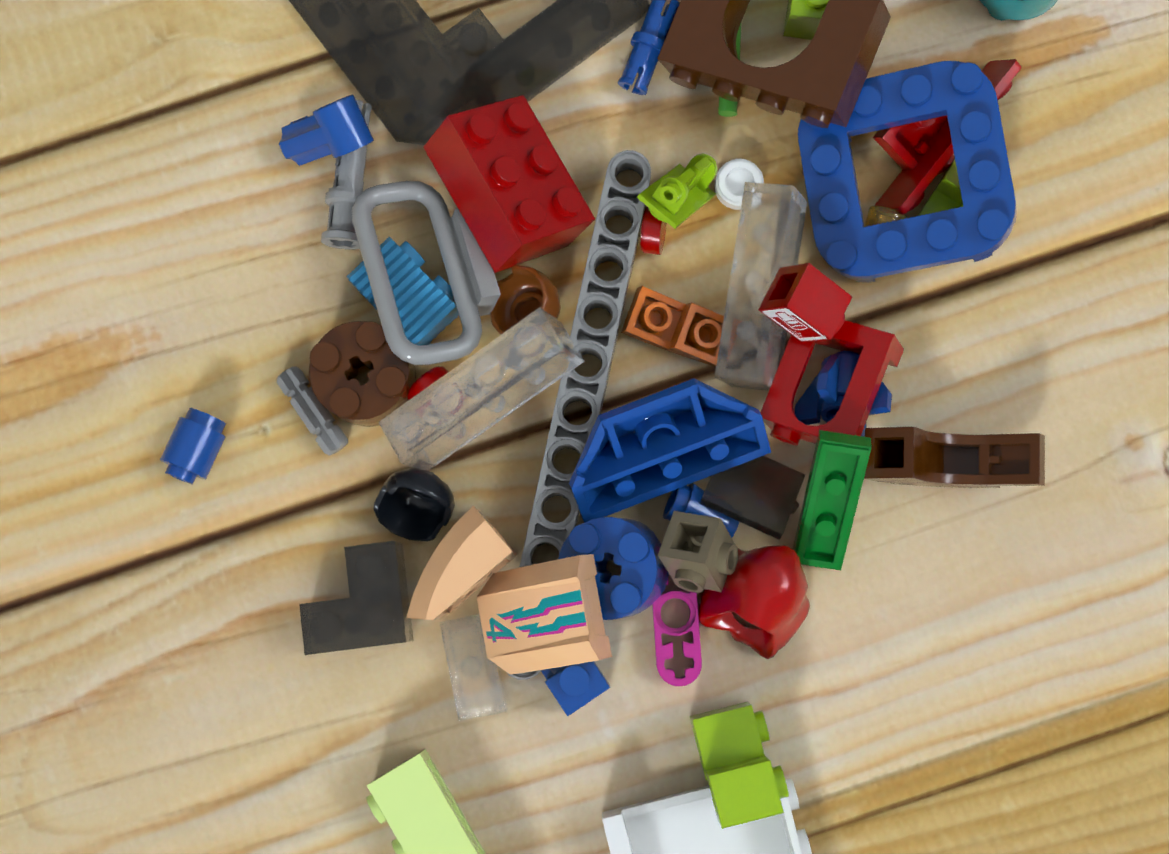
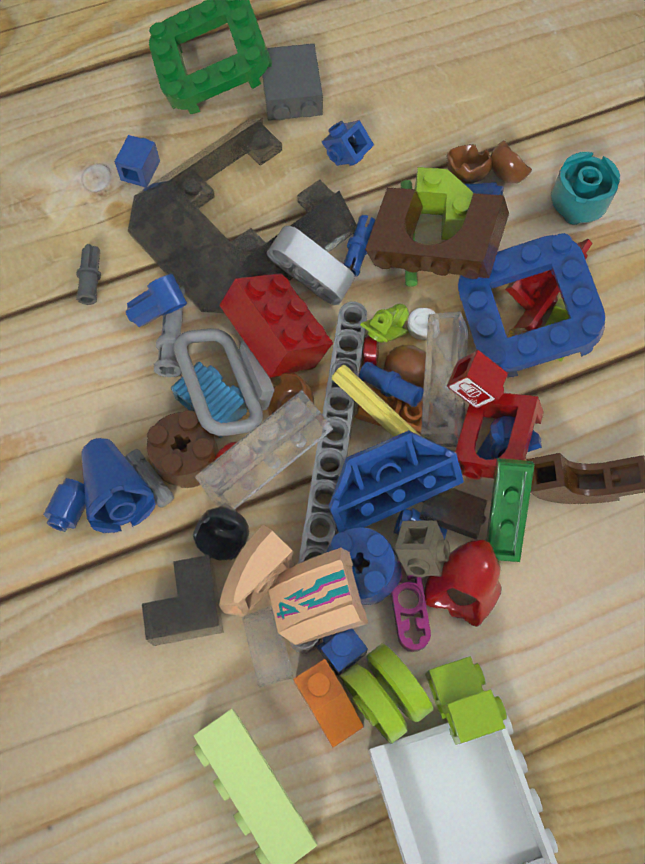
camera: 10 degrees left, 15 degrees down
(222, 70) = (88, 275): none -> dark grey axle
(258, 424) = (113, 488): none -> blue cone
(551, 750) = (328, 702): none -> orange slope
(569, 81) = (311, 265): none -> light grey beam
(626, 750) = (389, 690): none -> lime wheel
(652, 329) = (370, 402): none -> light yellow axle
(678, 290) = (391, 384): none -> blue pin
(703, 261) = (408, 362): none -> dark orange hair

